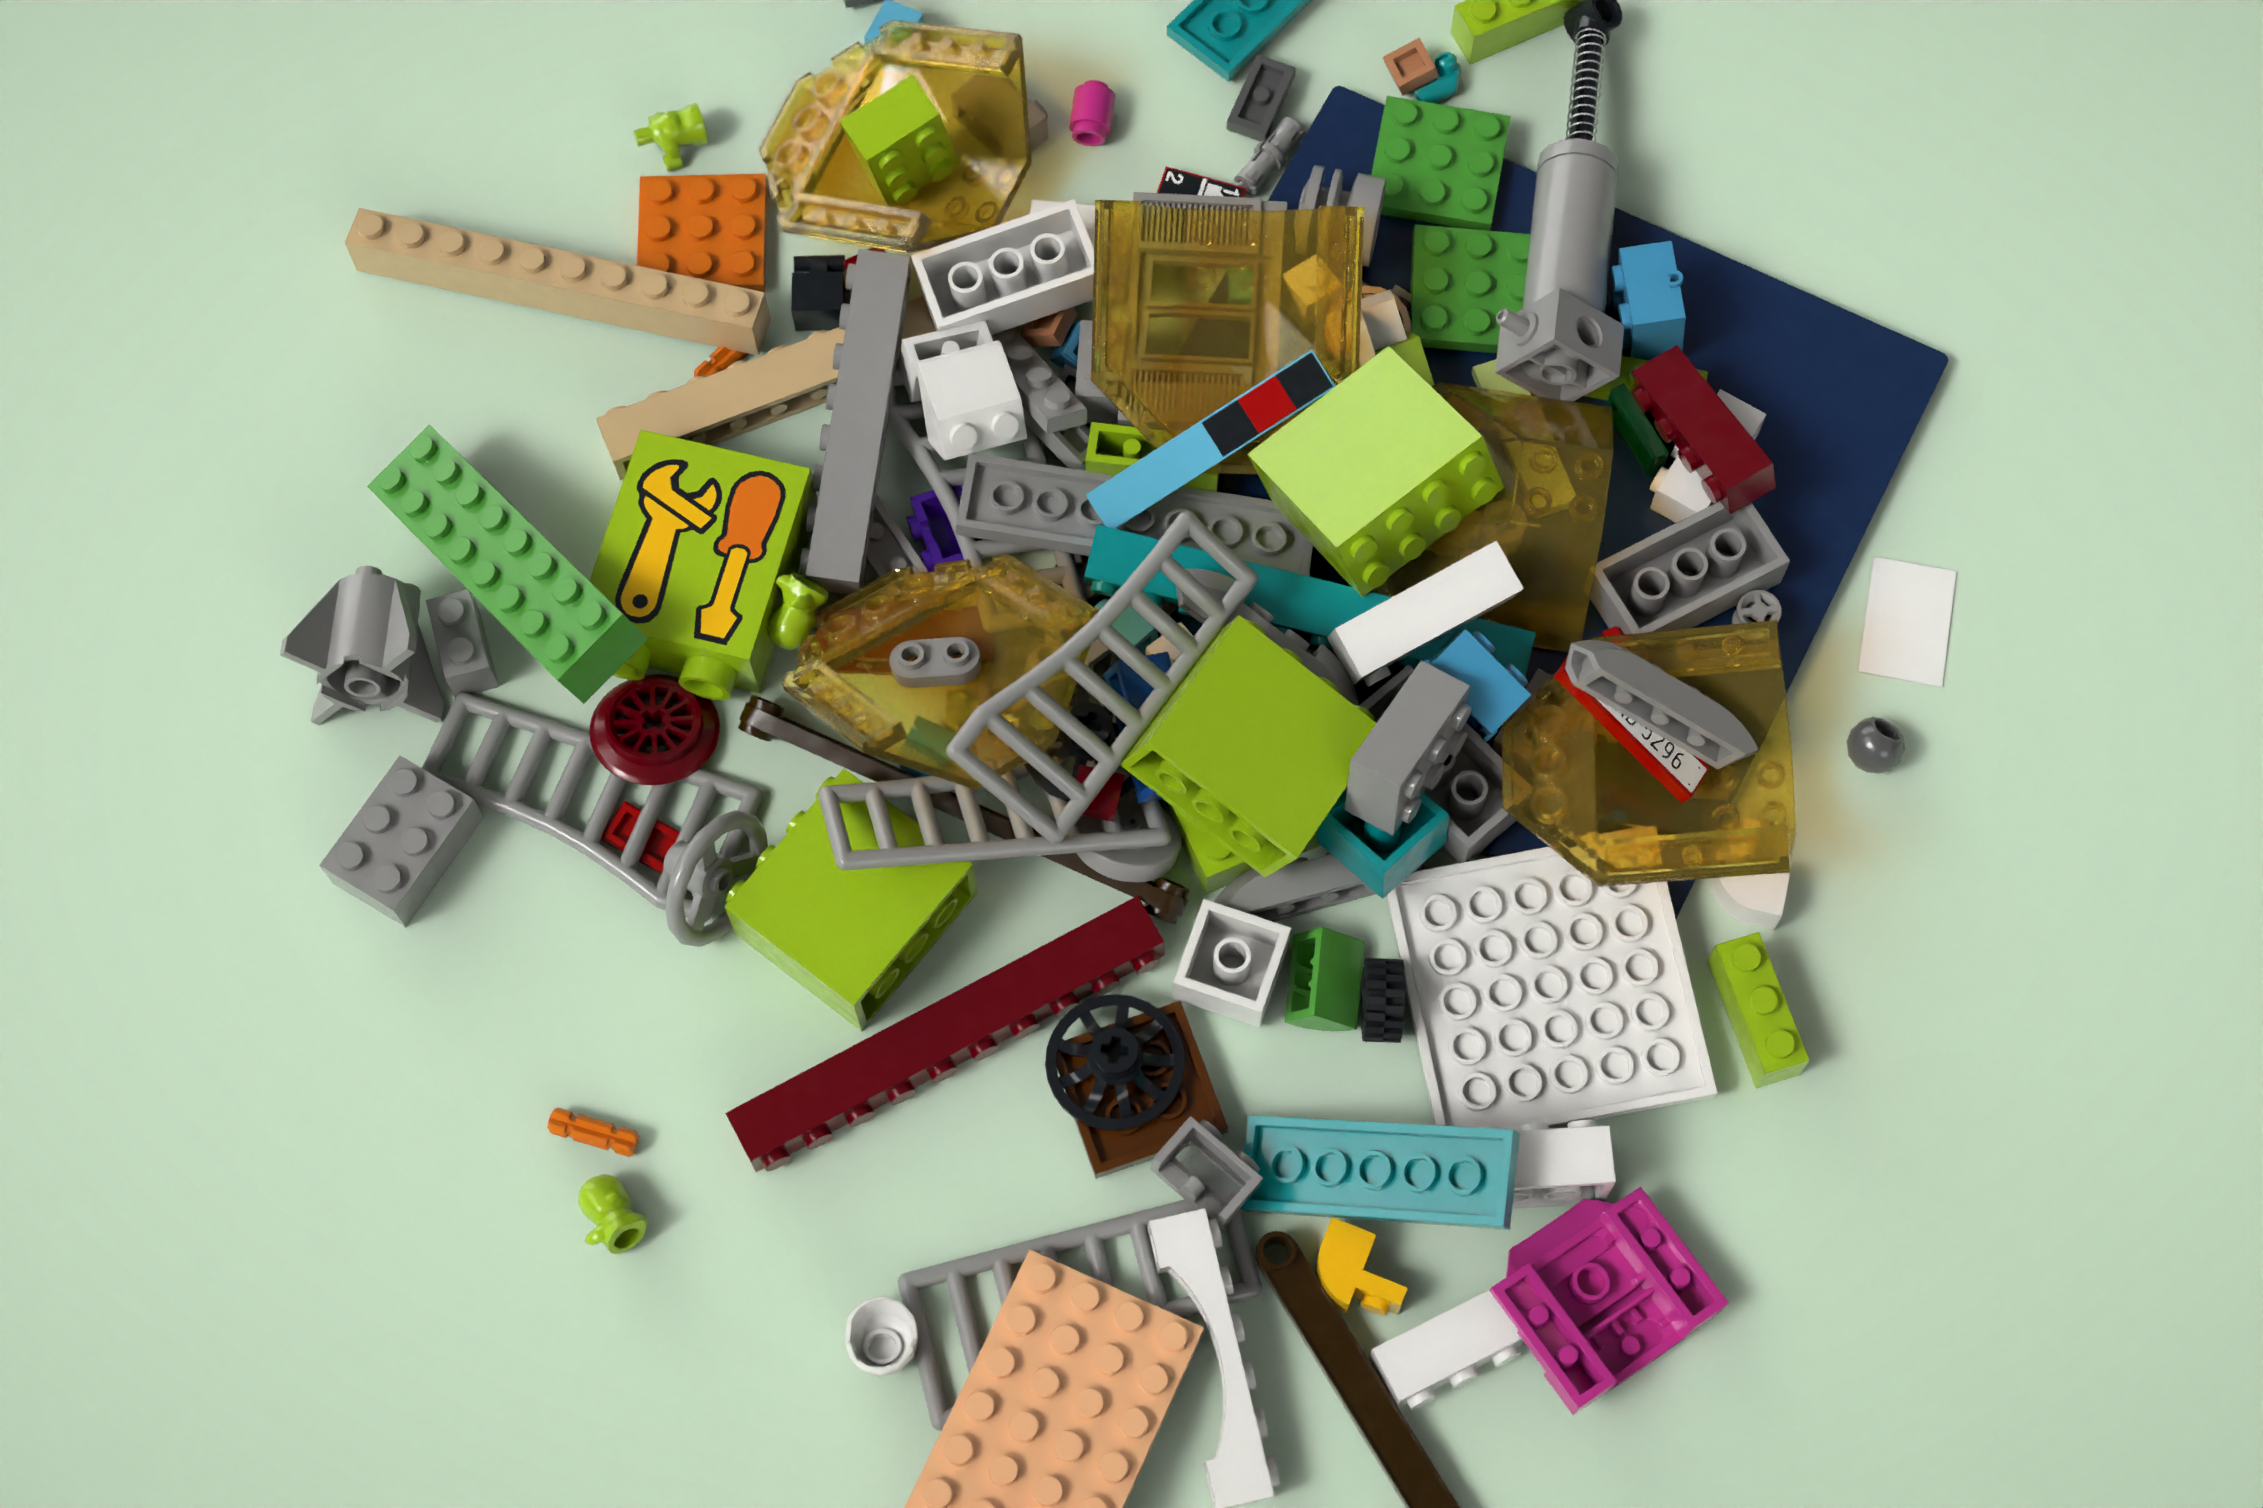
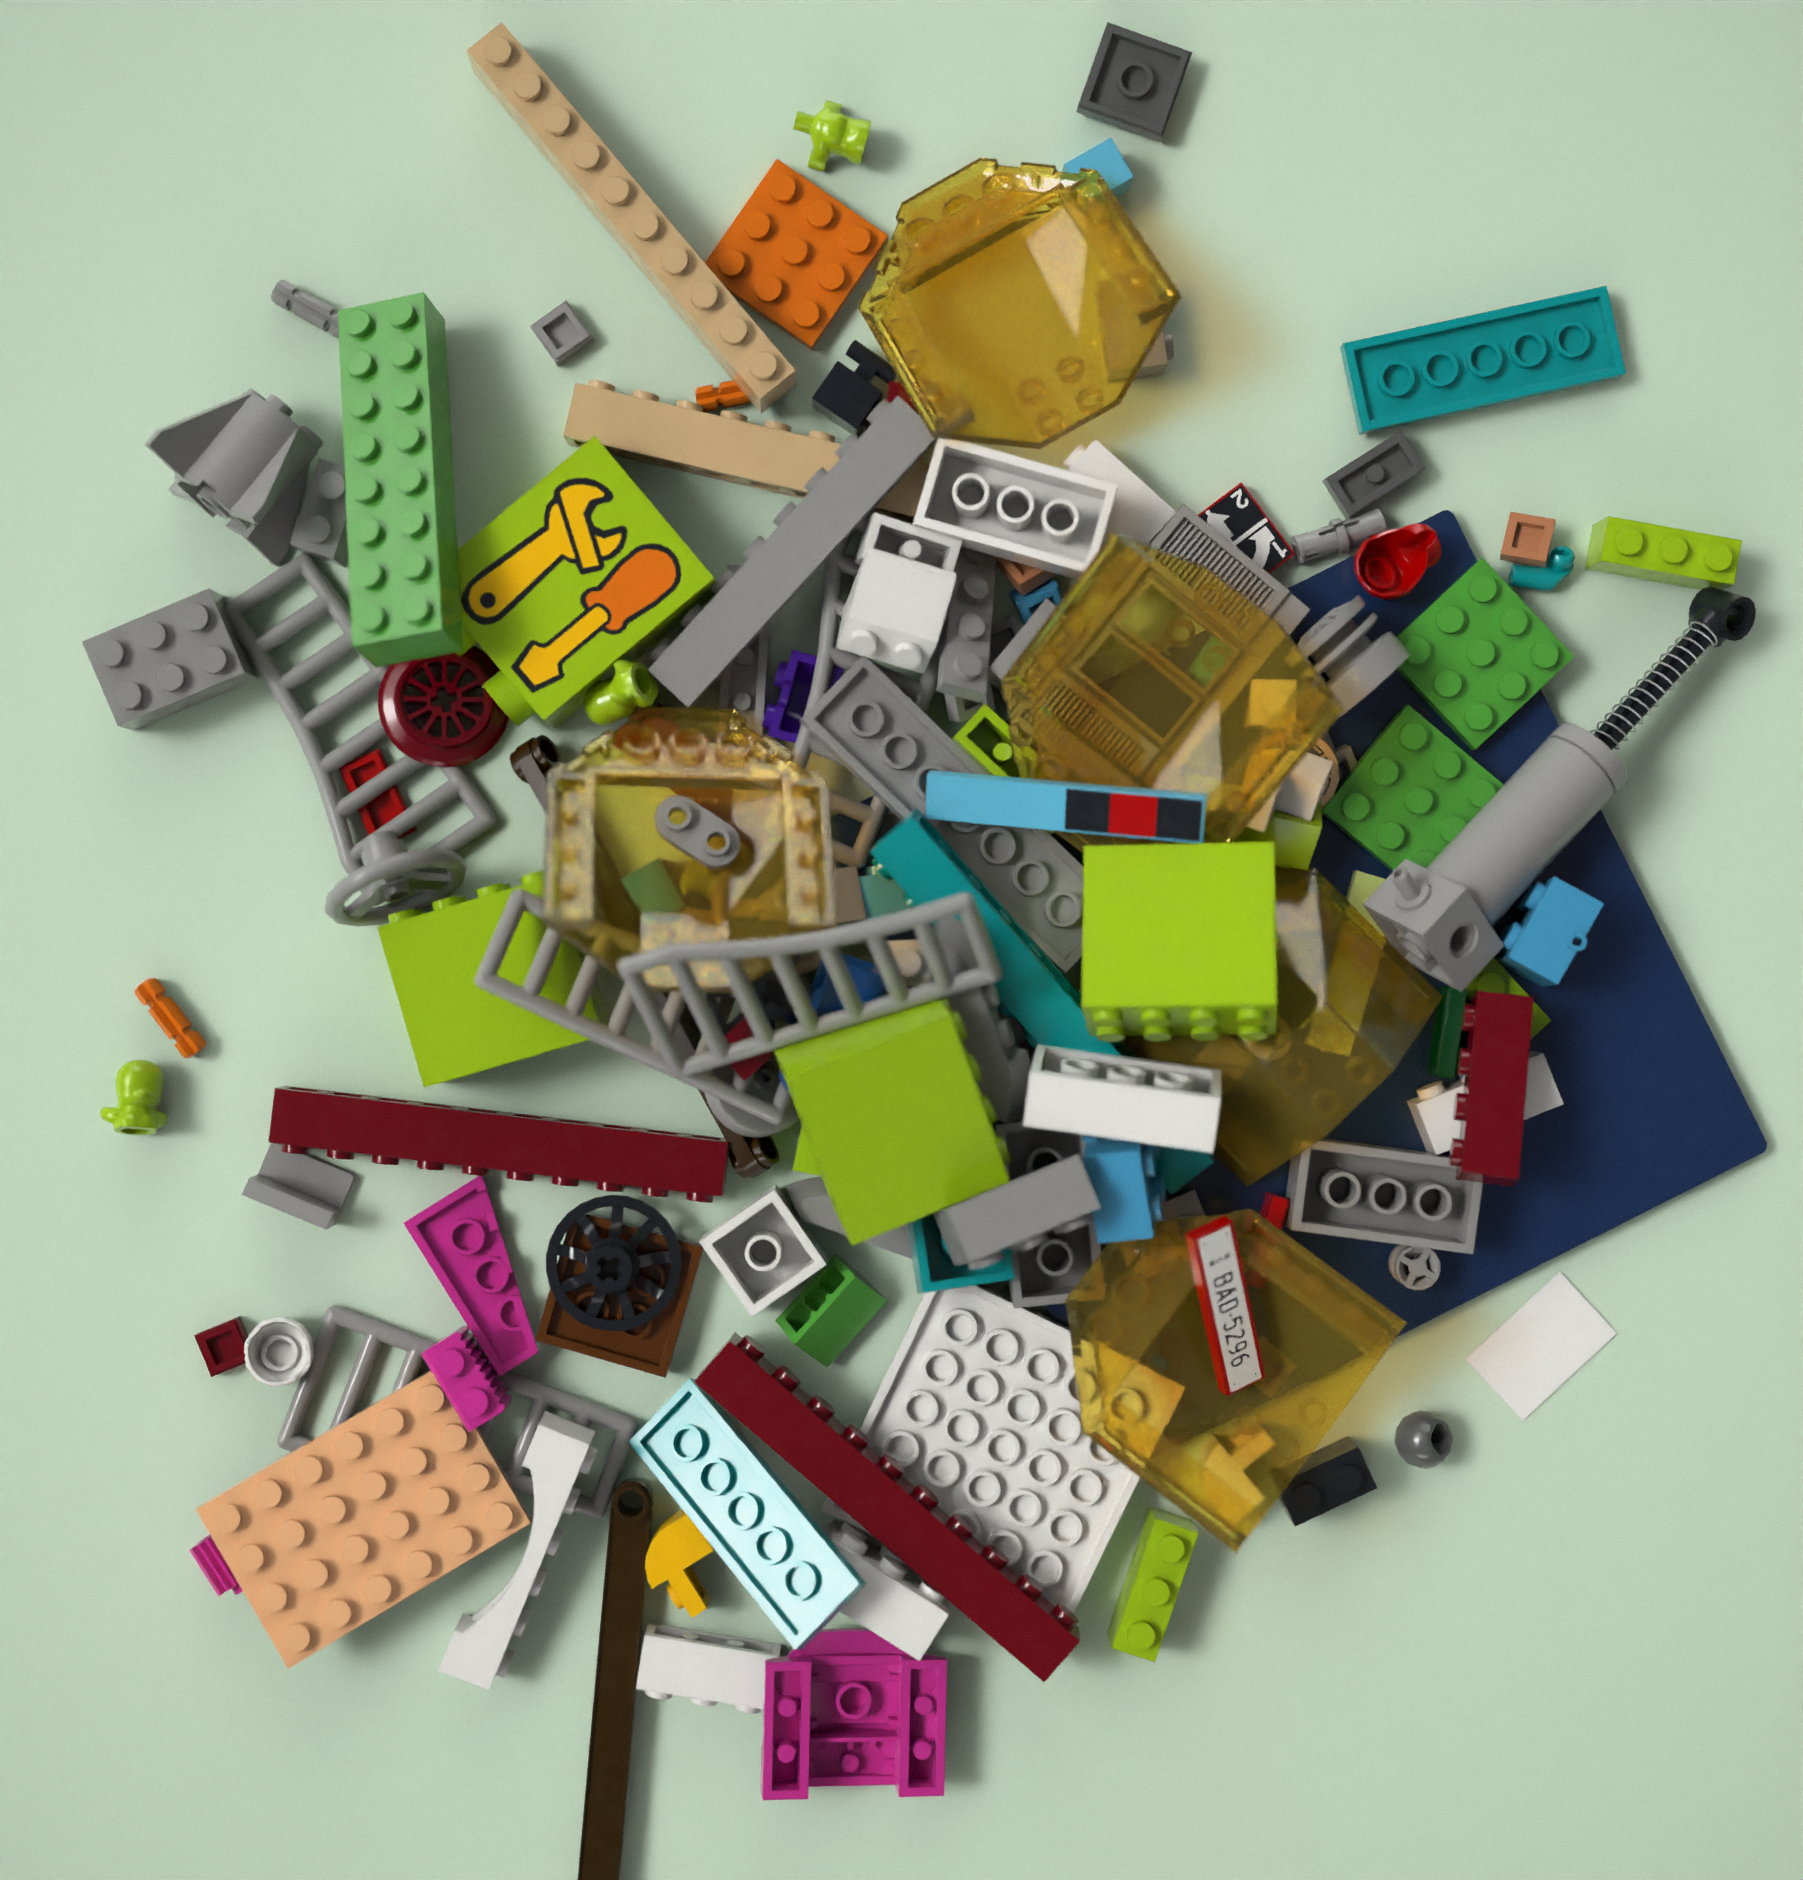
camera: 30 degrees right, 20 degrees up
(343, 512) = (306, 307): none -> light grey axle
(557, 402) = (562, 333): none -> light grey tile
(802, 1192) = (301, 1186): none -> light grey panel
(830, 1377) = (223, 1345): none -> dark red tile
(900, 142) = (1010, 310): lime brick -> none
(994, 1153) = (474, 1268): none -> dark pink wing
(1059, 1236) = (467, 1378): none -> dark pink brick
(1092, 113) = (1215, 382): dark pink brick -> none
(1207, 1171) = (619, 1409): light grey window -> none
(1324, 134) = (1396, 560): none -> red hair
(1383, 1000) = (860, 1368): black tyre -> none
(1493, 1087) = (890, 1506): none -> dark red brick
(1659, 702) = (1272, 1332): light grey brick -> none
(1825, 831) = (1327, 1481): none -> black brick

